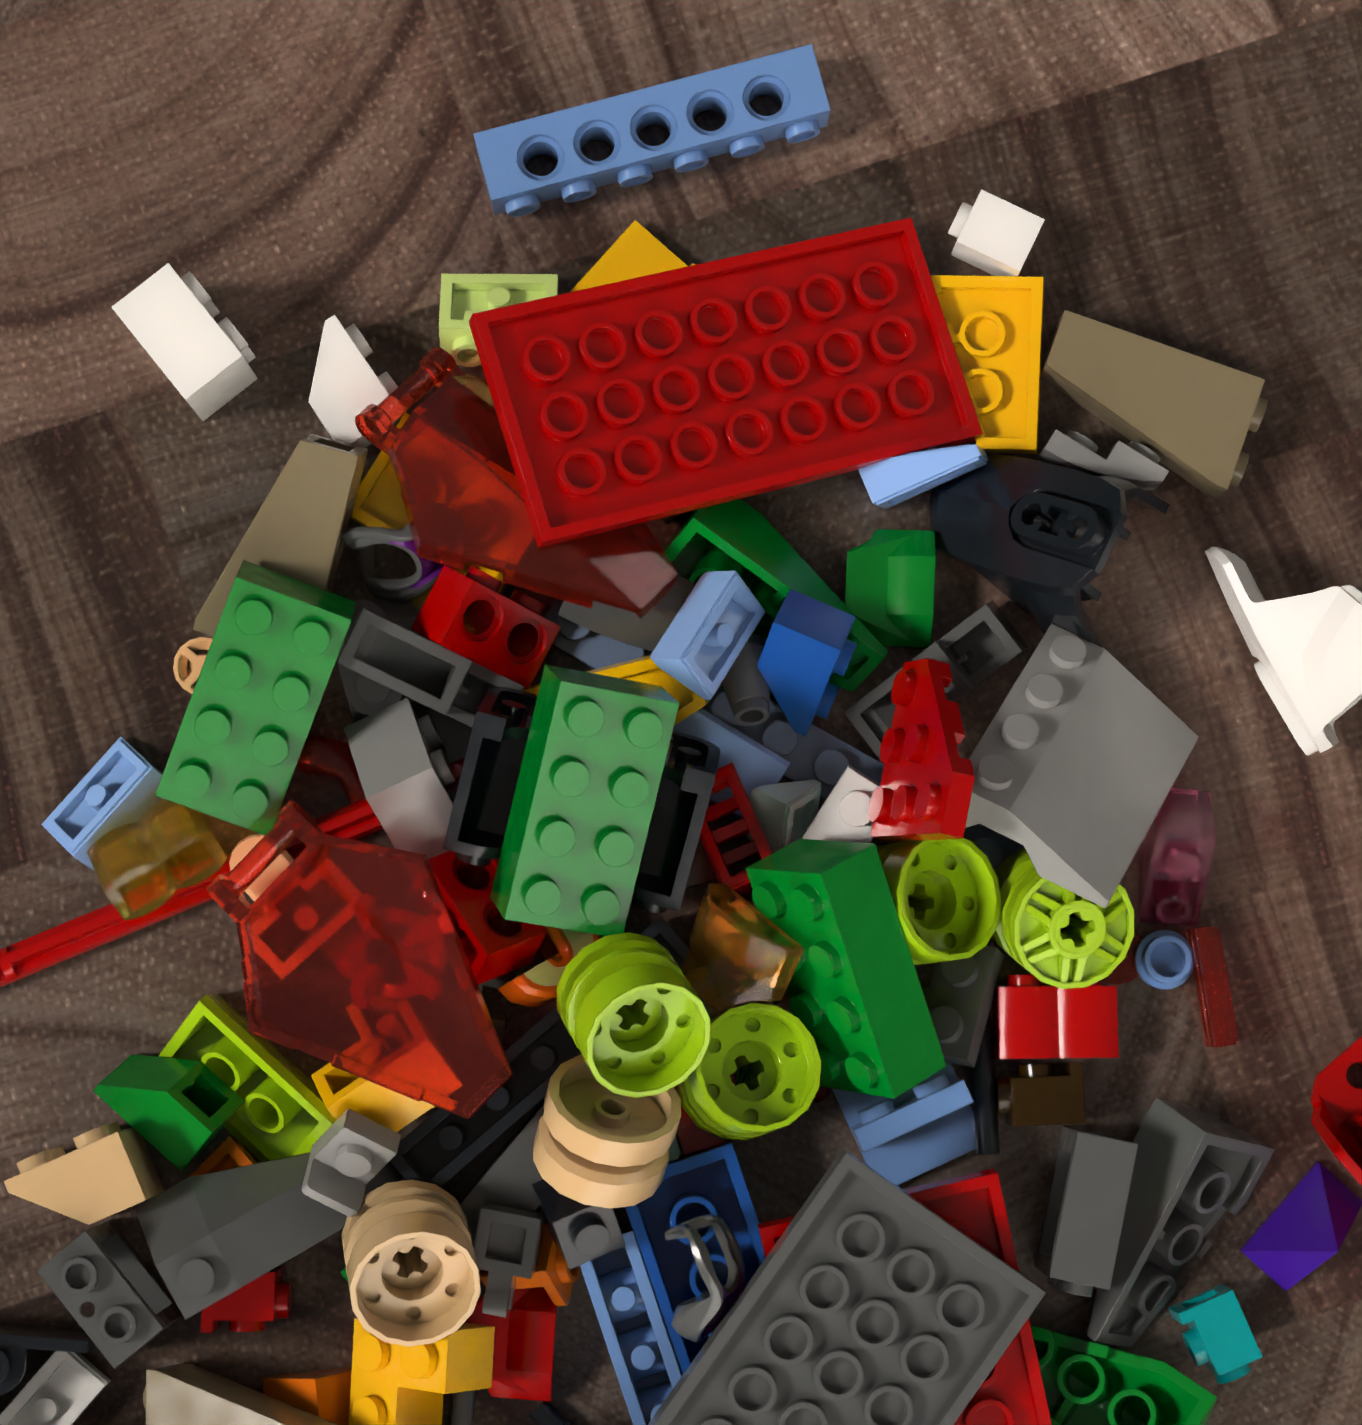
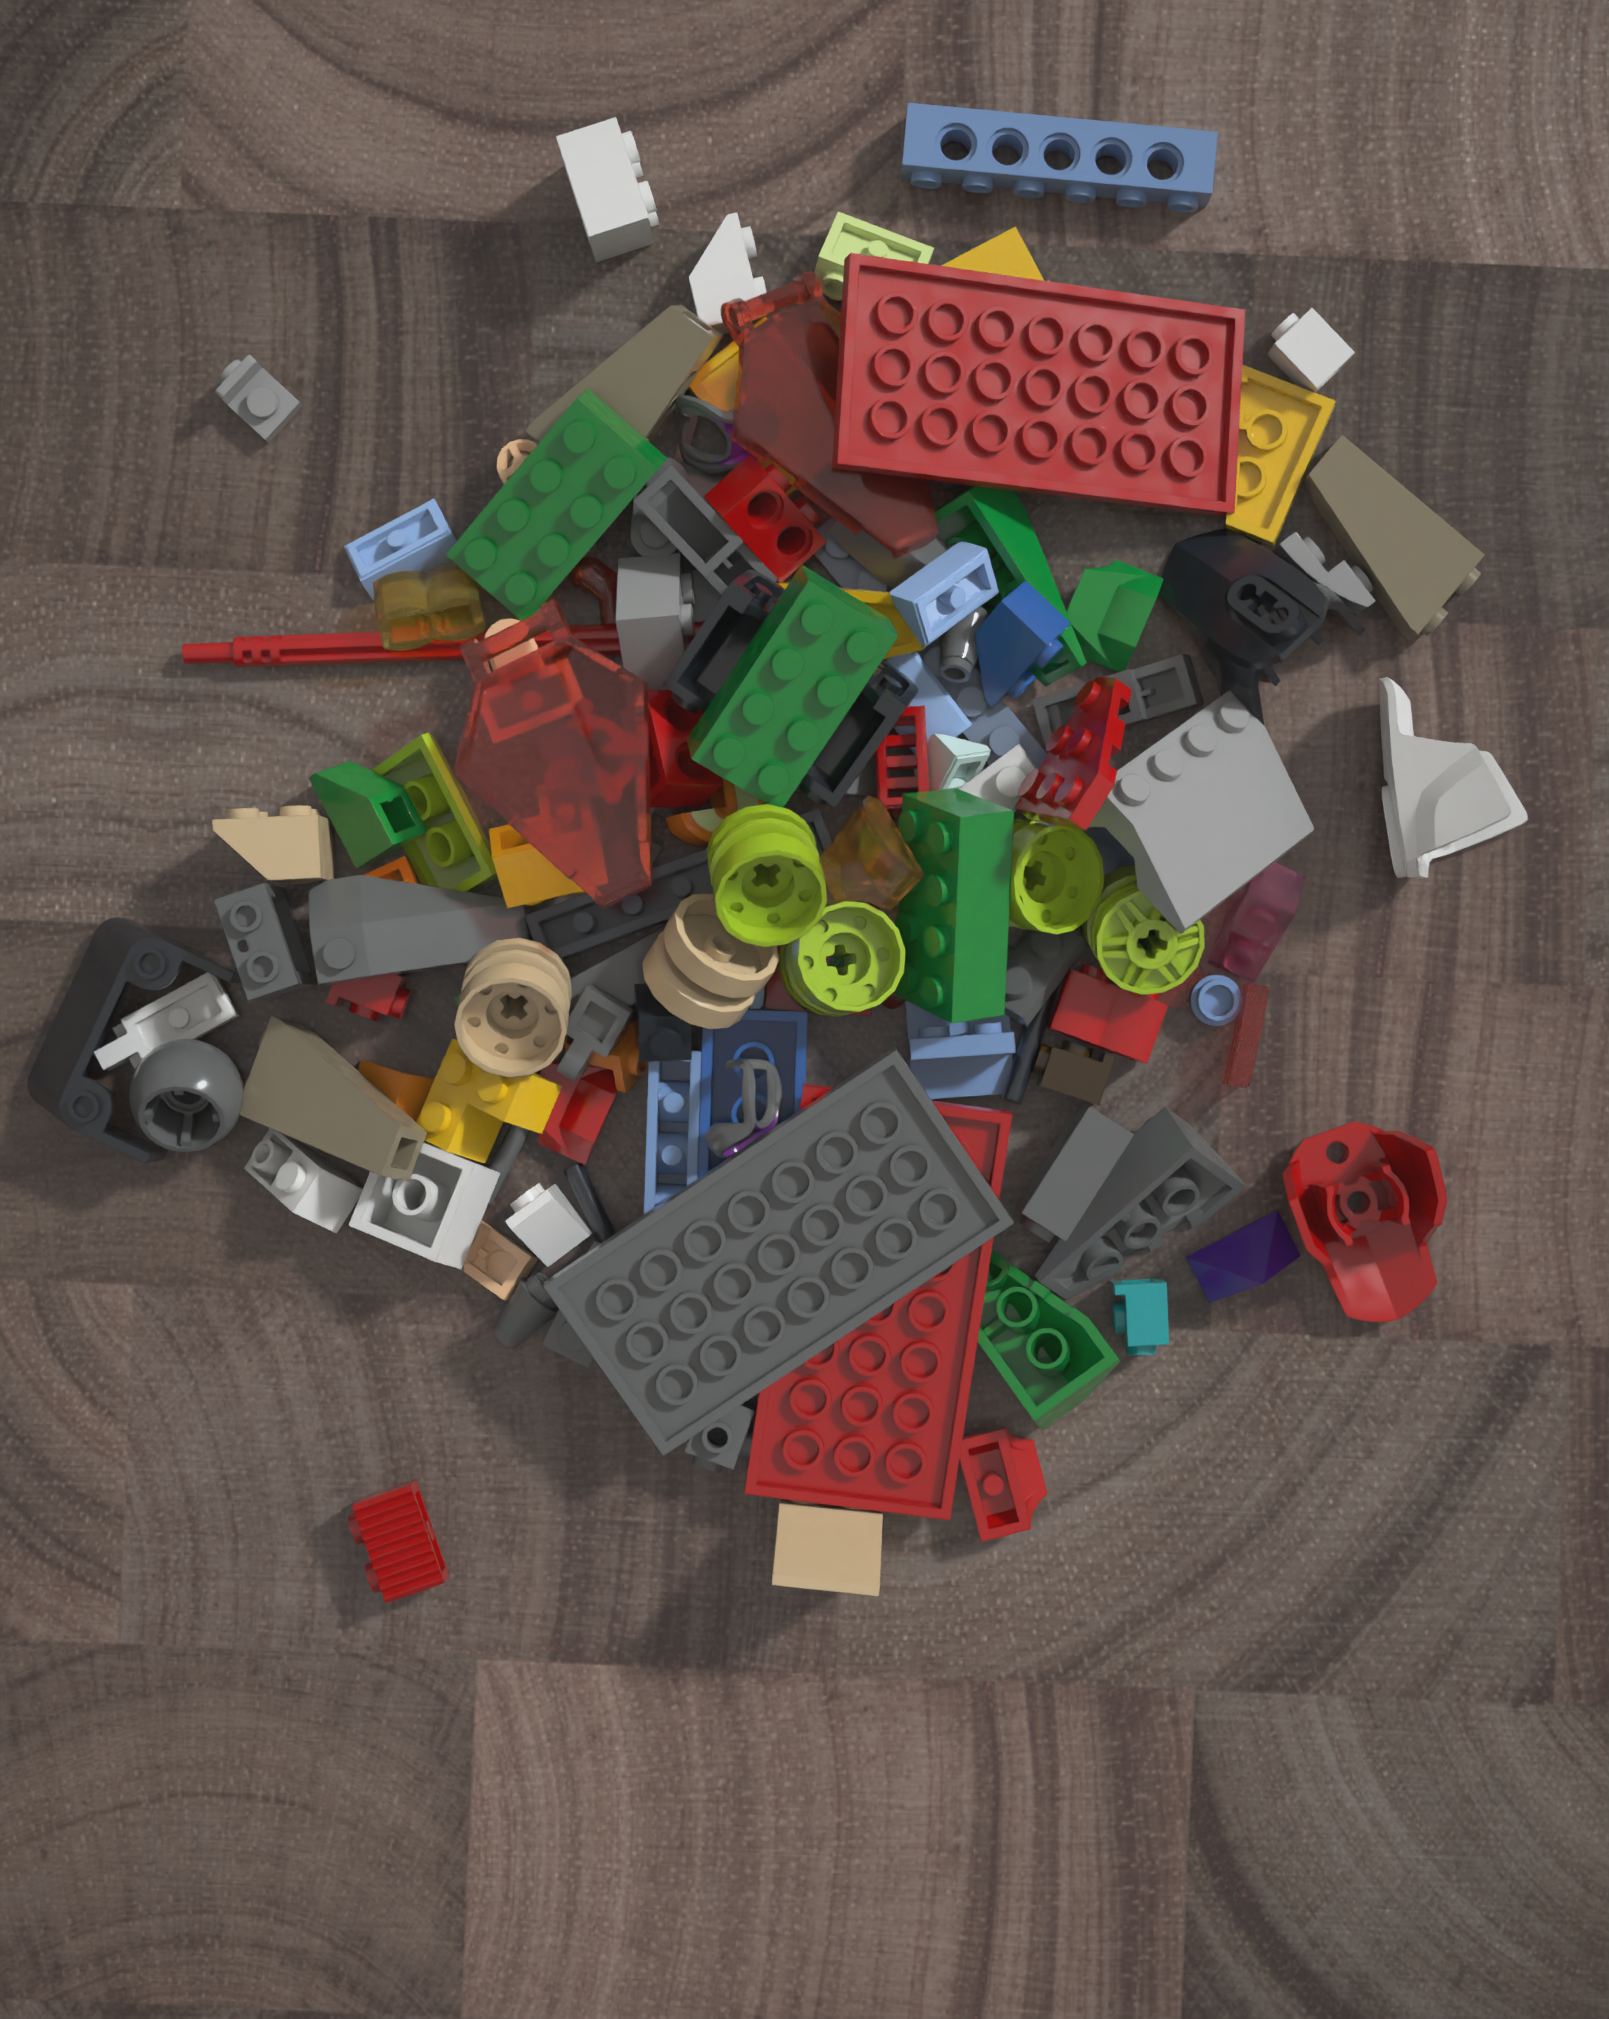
camera: 30 degrees right, 5 degrees up
(347, 1160) = (494, 907): light grey bracket -> none
(917, 472) = (1166, 524): light blue slope -> none

